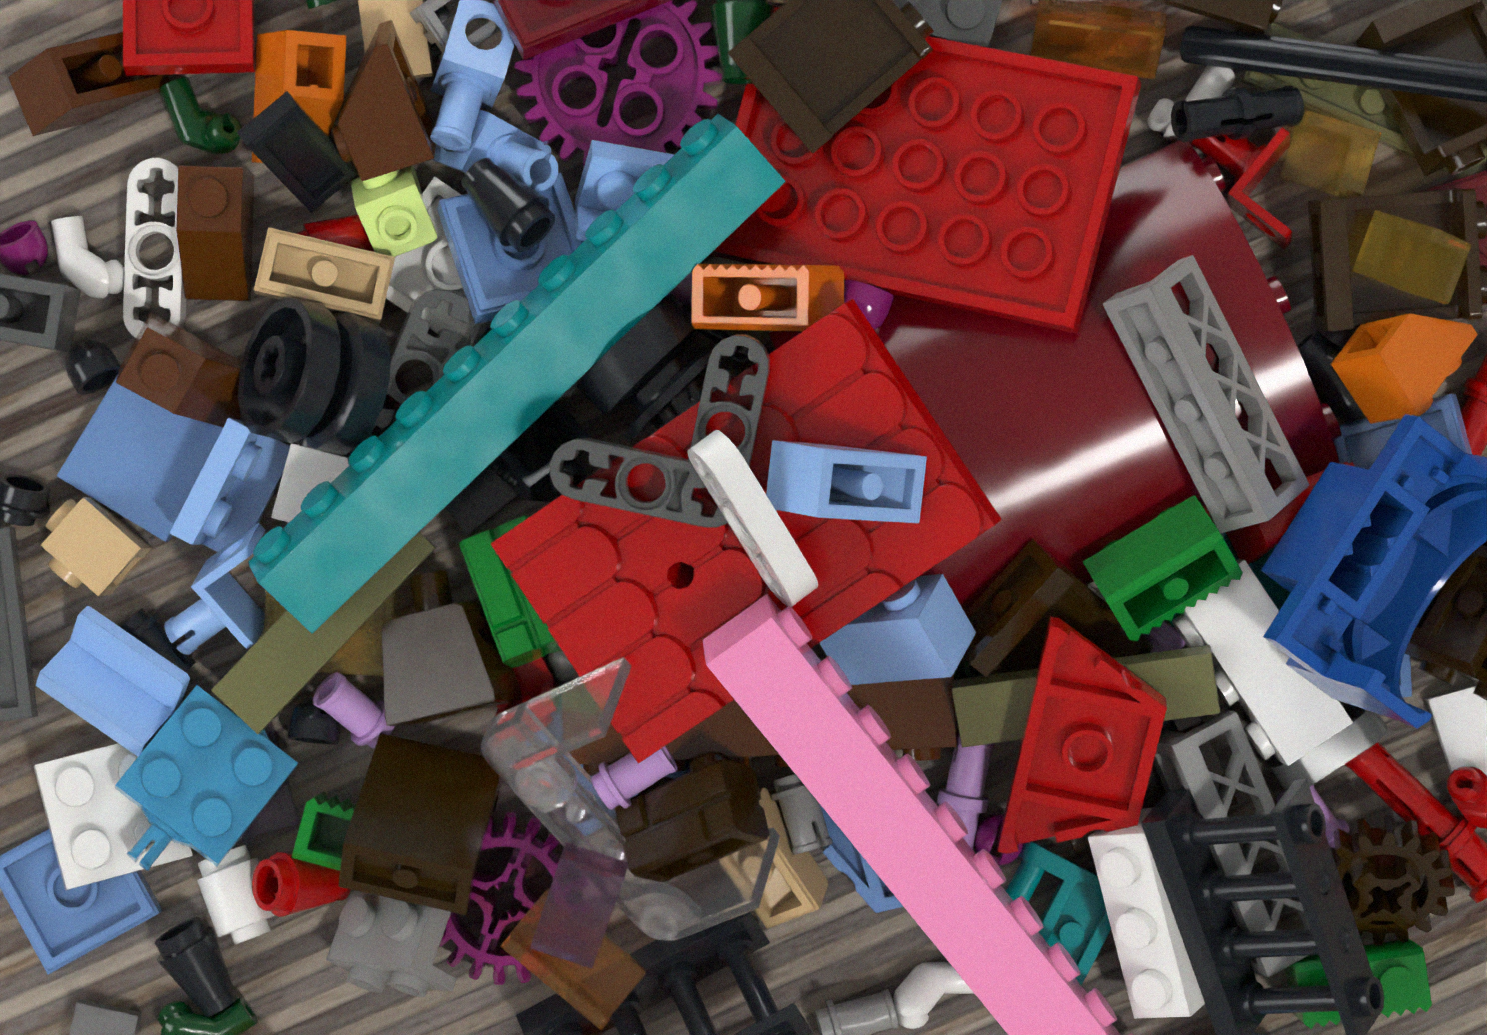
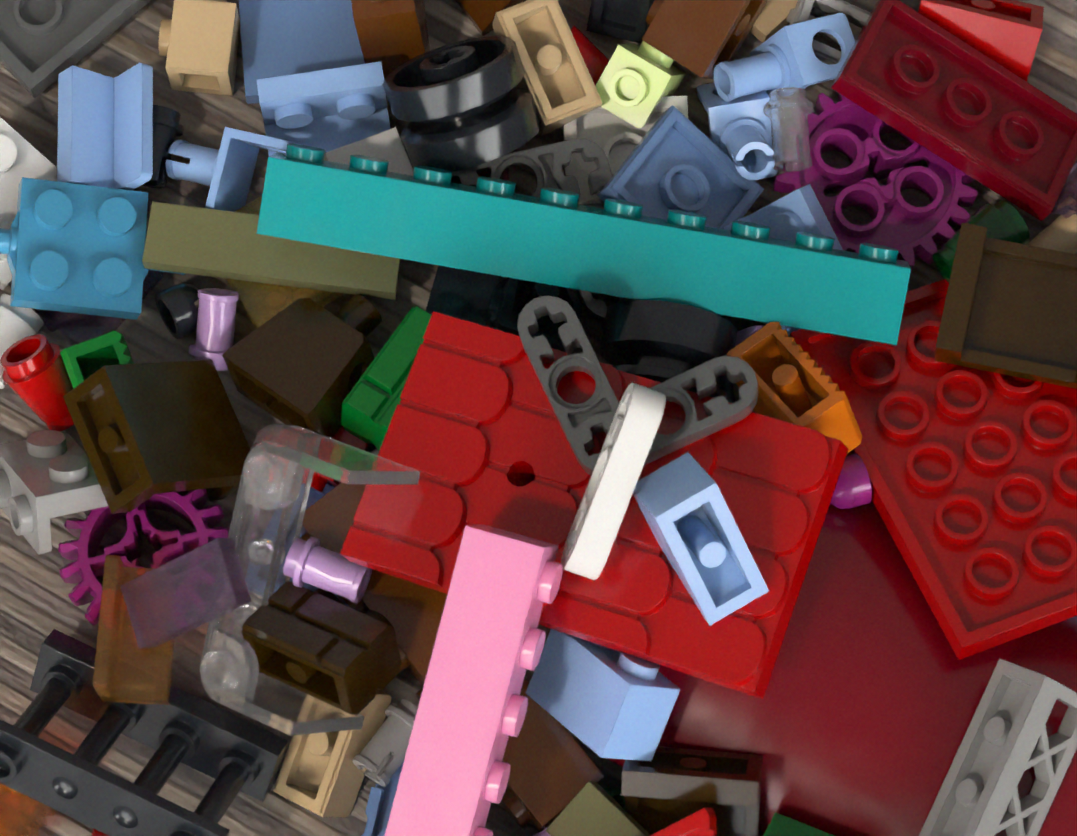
camera: 45 degrees right, 15 degrees down
(508, 205) = (710, 155): black cone -> none
(530, 118) = (789, 128): none -> clear pin

